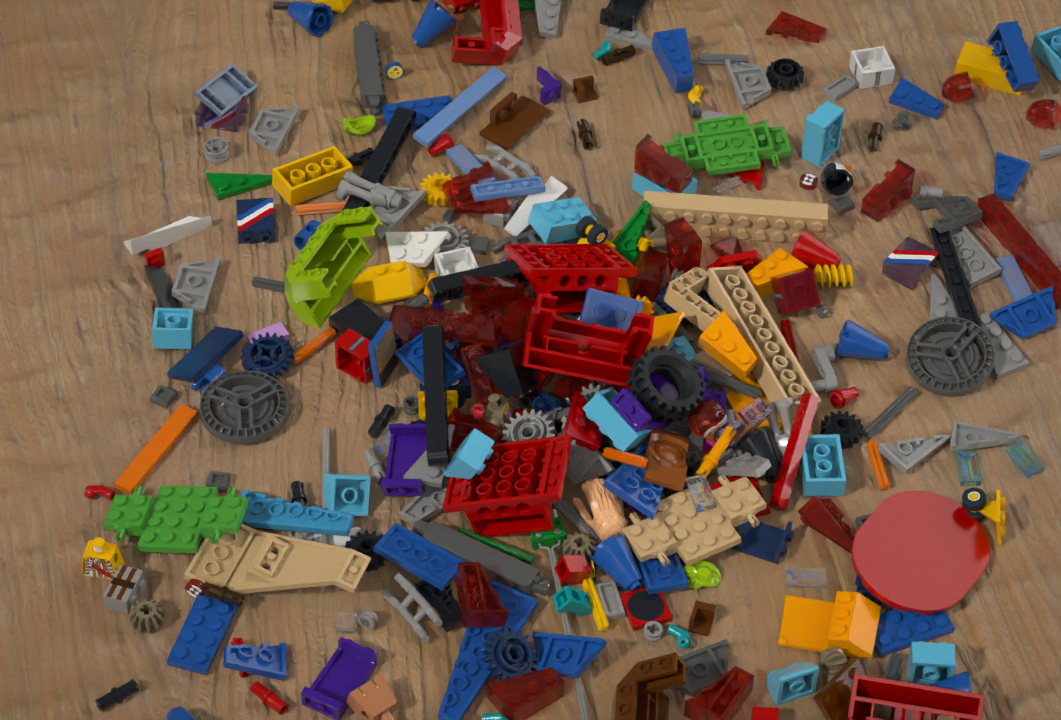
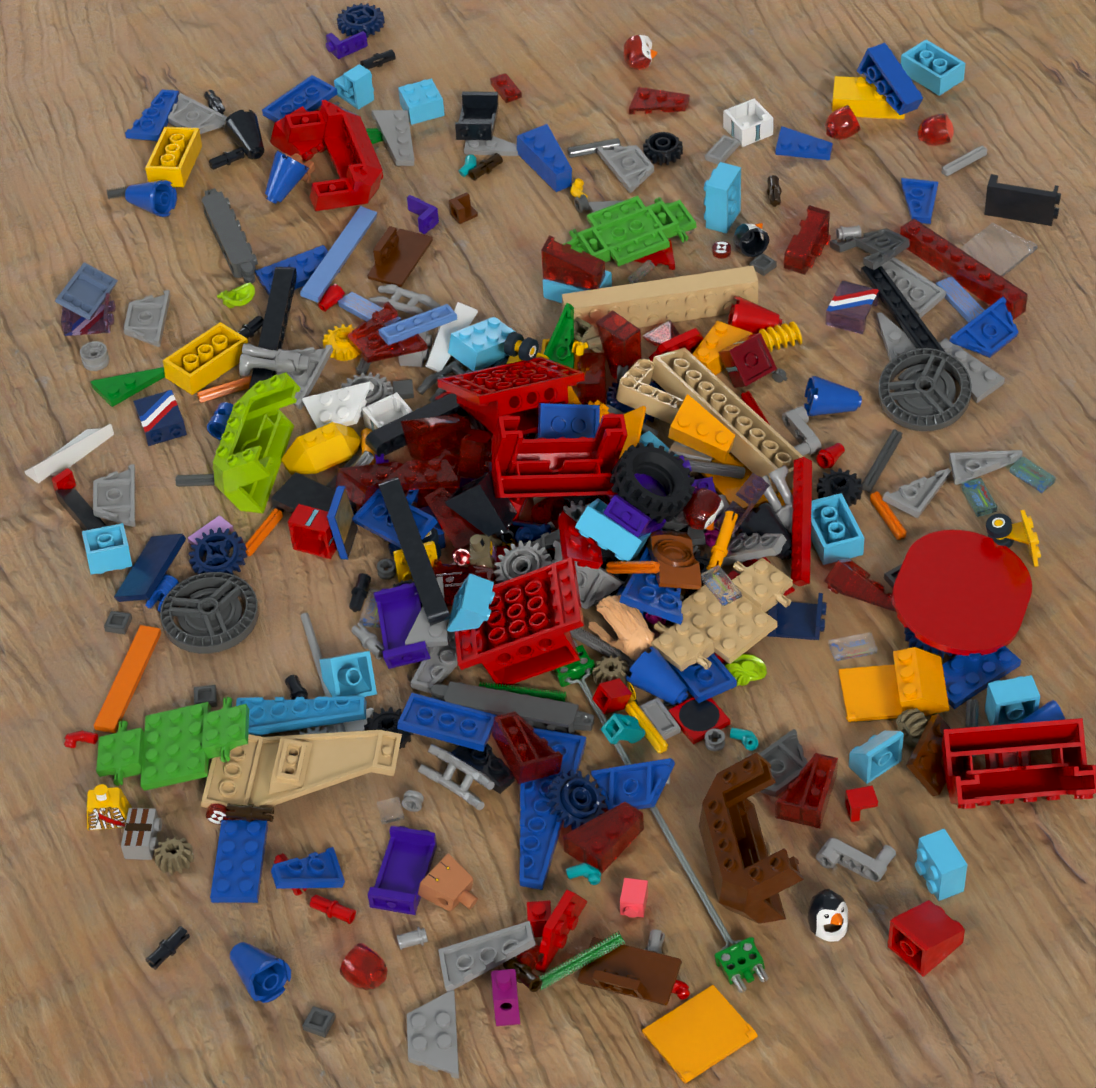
camera: 10 degrees left, 0 degrees up
(394, 70) = (257, 233): tile -> none
(585, 134) = (477, 253): dark brown pin -> none
(702, 618) = (762, 713): reddish brown panel -> none
(902, 120) = (795, 168): dark grey plant -> none

